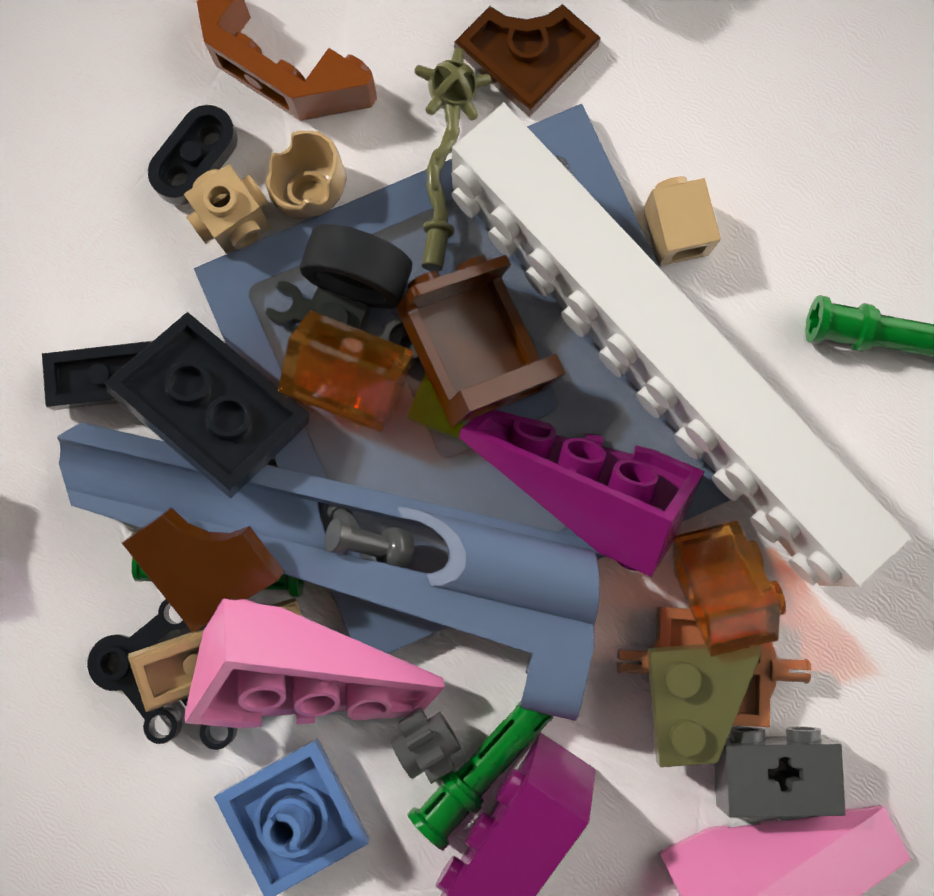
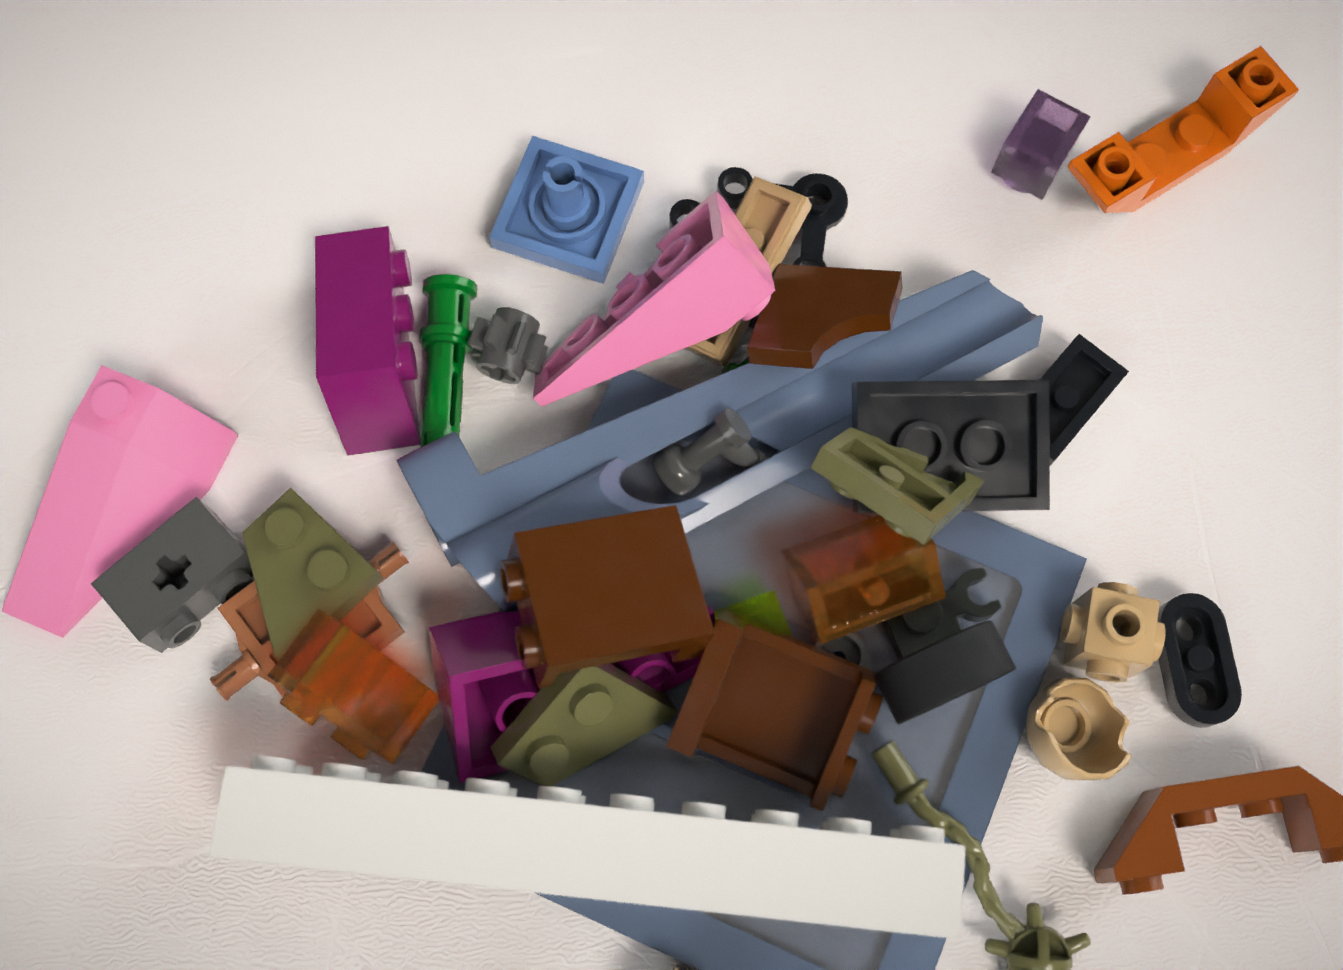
camera: 140 degrees right, 10 degrees down
(274, 398) = (893, 483): none -> olive wing
(528, 487) = (605, 592): none -> reddish brown panel
(601, 441) = (579, 722): none -> olive wing

